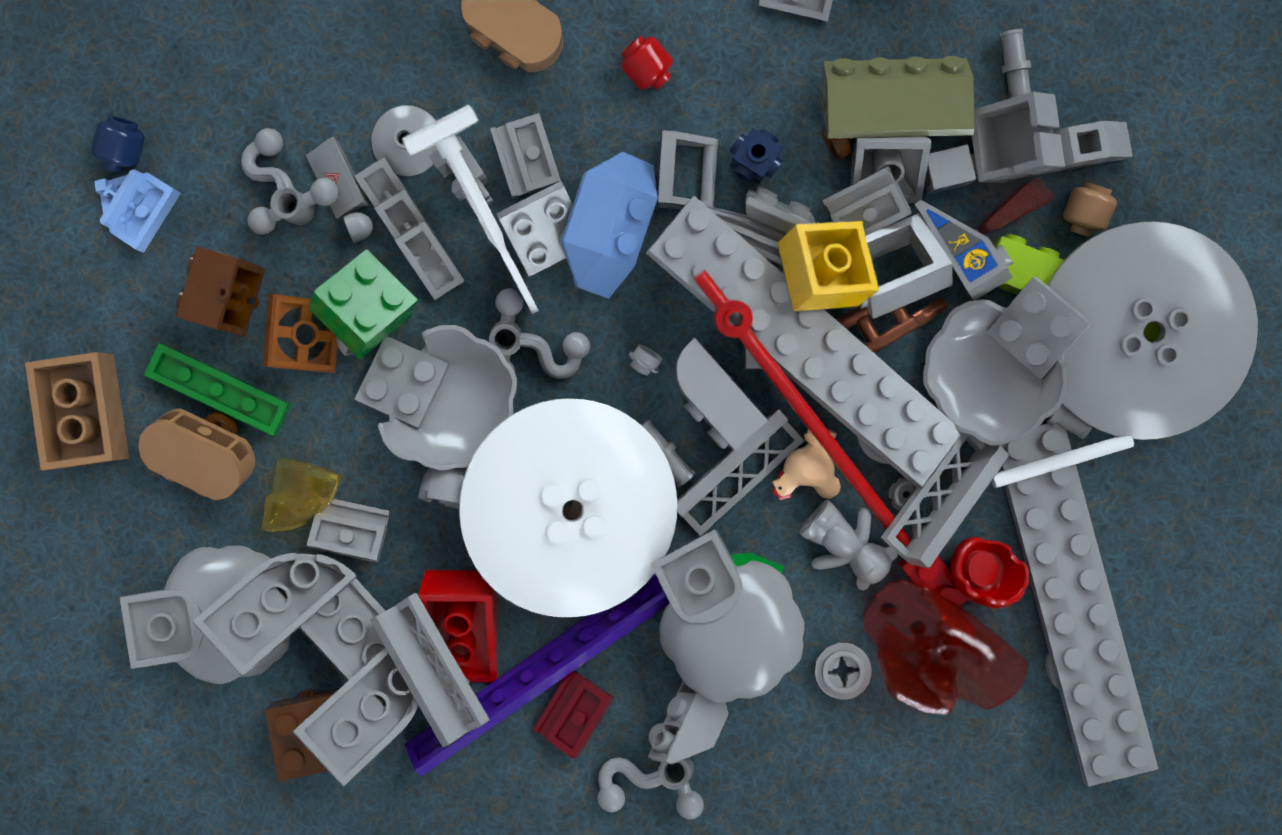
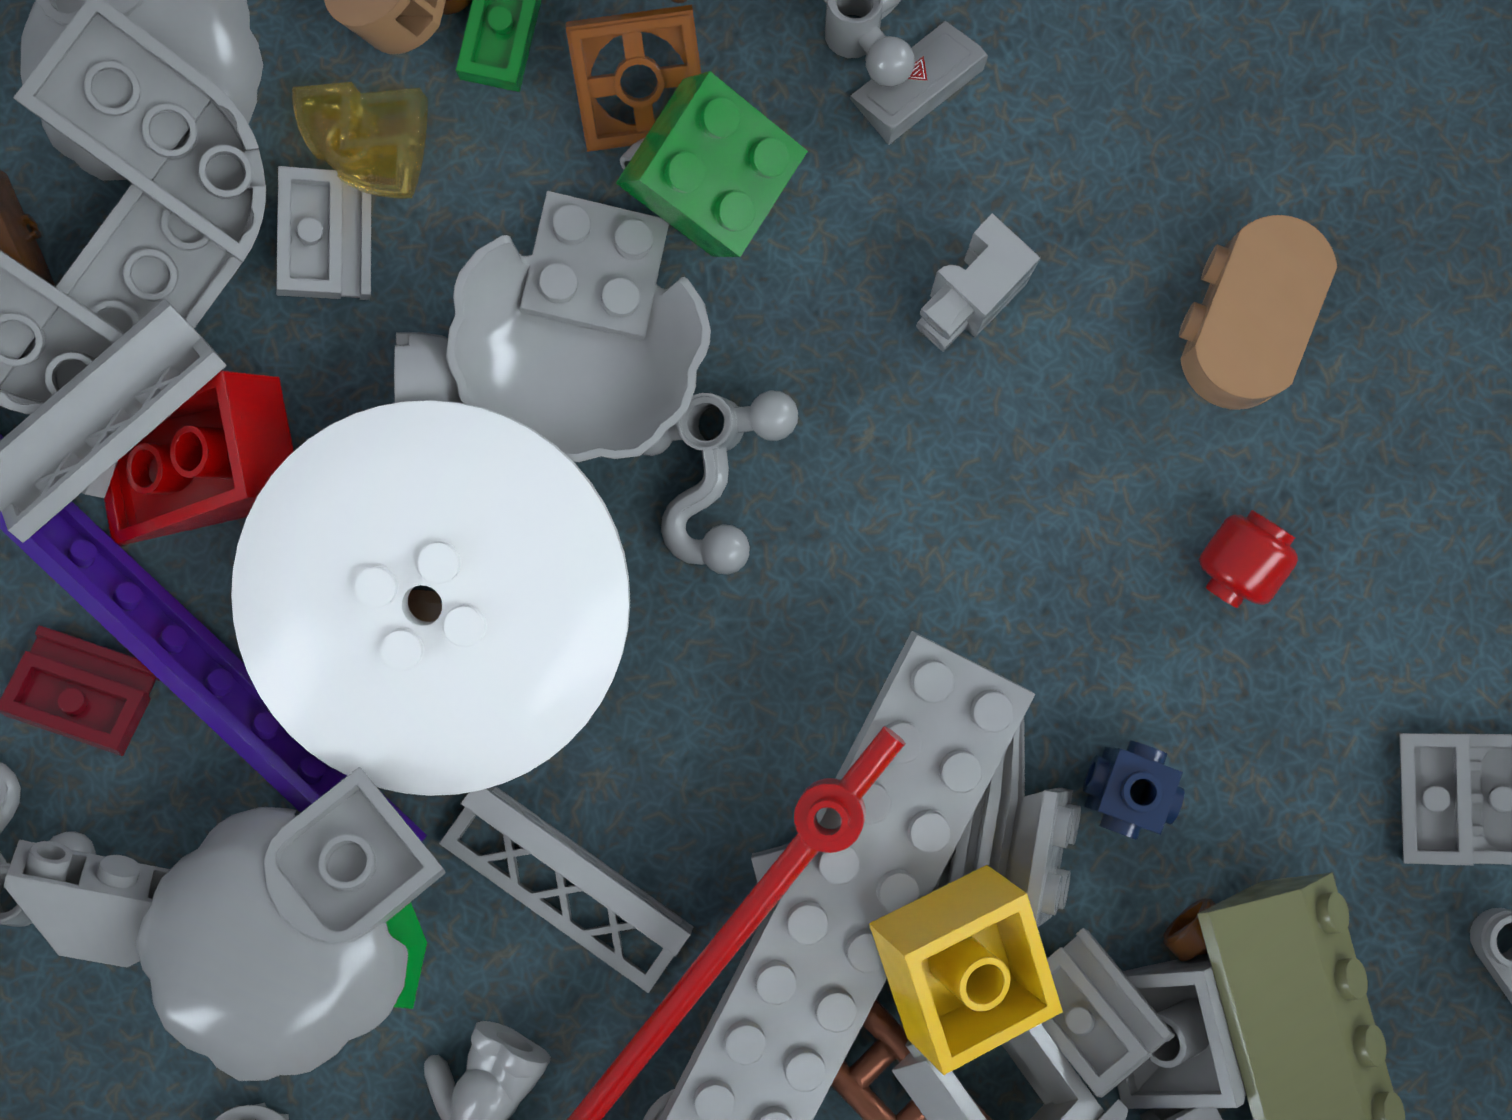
camera: 85 degrees right, 5 degrees down
(358, 226) = (845, 133): light grey hinge -> none
(386, 139) = (1027, 208): light grey dish -> none
(409, 228) = (862, 219): light grey slope -> none
(443, 135) = (1032, 227): white piece -> none
(525, 155) = (1034, 387): light grey plate -> none
(538, 226) = (915, 446): light grey plate -> none
(609, 222) = (953, 557): medium blue wedge -> none
(645, 360) = (727, 675): light grey plate -> none
(667, 165) = (1123, 630): light grey tile -> none
(680, 470) = (548, 778): light grey pin -> none
(715, 398) = (681, 818): light grey brick -> none
(810, 468) = (599, 1010): light nougat animal -> none

